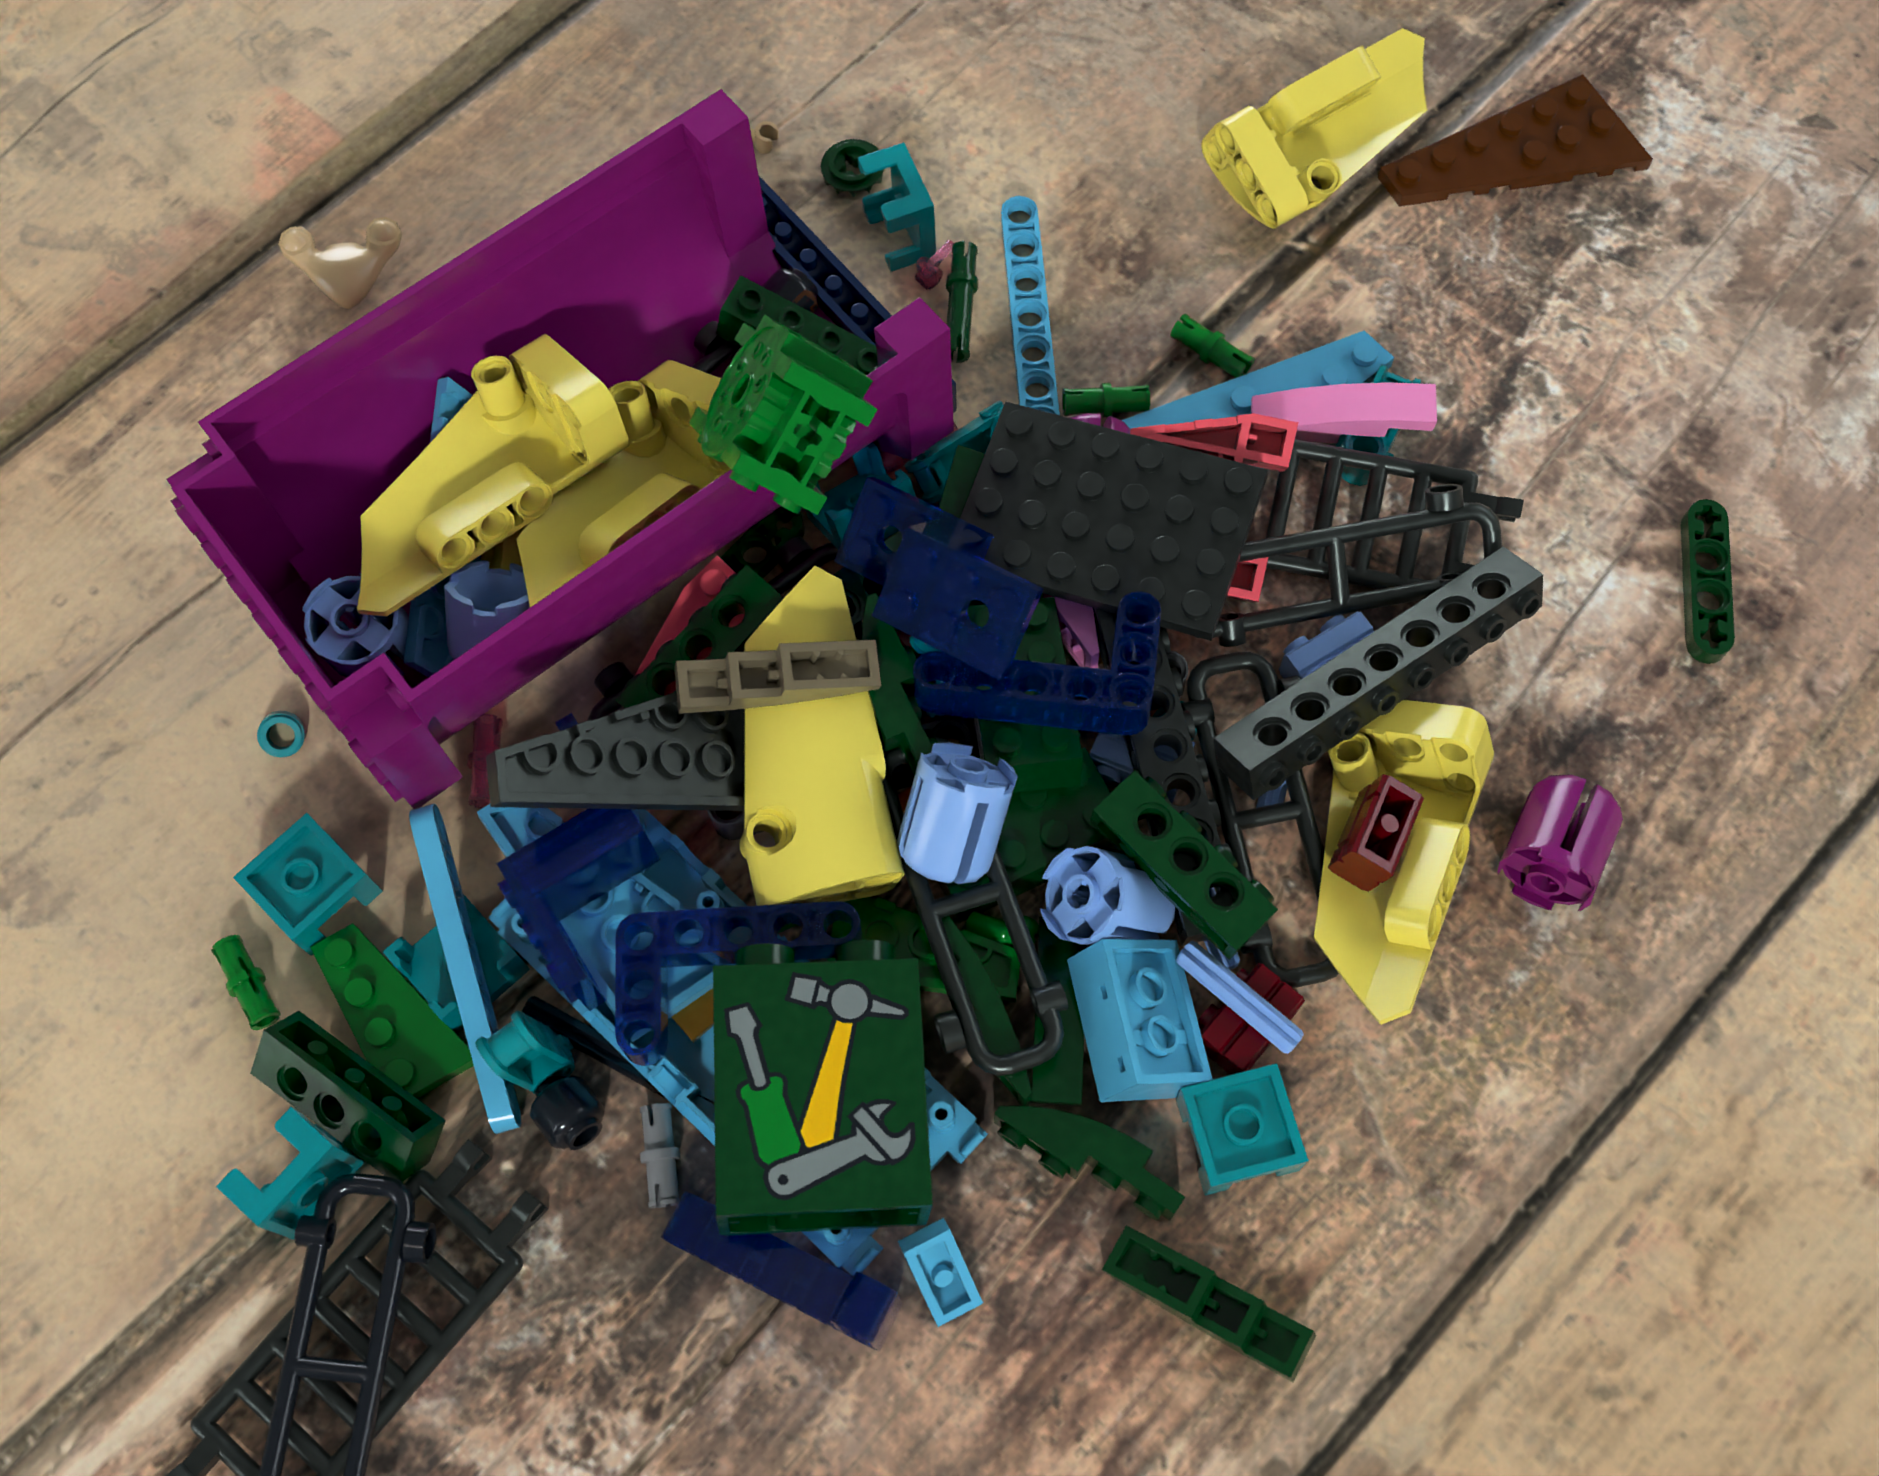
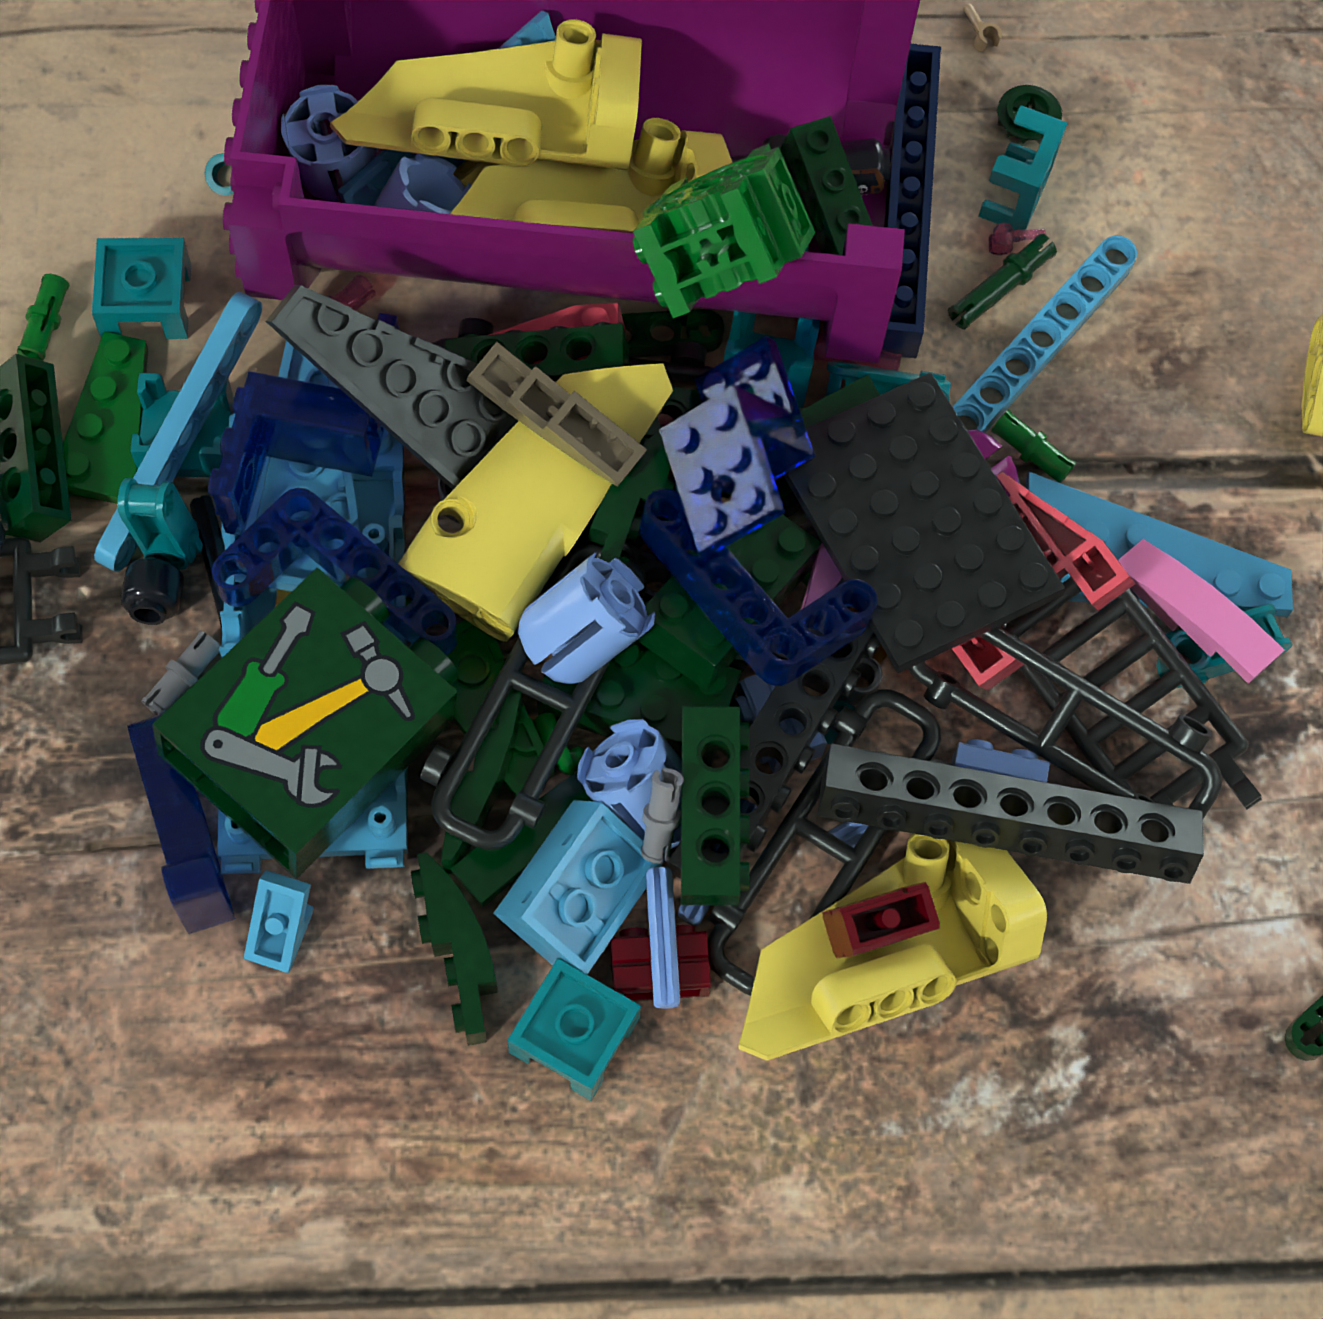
camera: 35 degrees right, 0 degrees up
(1157, 905) = (661, 815): none -> light grey pin
(1209, 1303) = (432, 1121): dark green slope -> none
(1212, 347) = (1158, 479): green pin -> none
(1537, 837) = (1020, 1061): magenta cylinder -> none

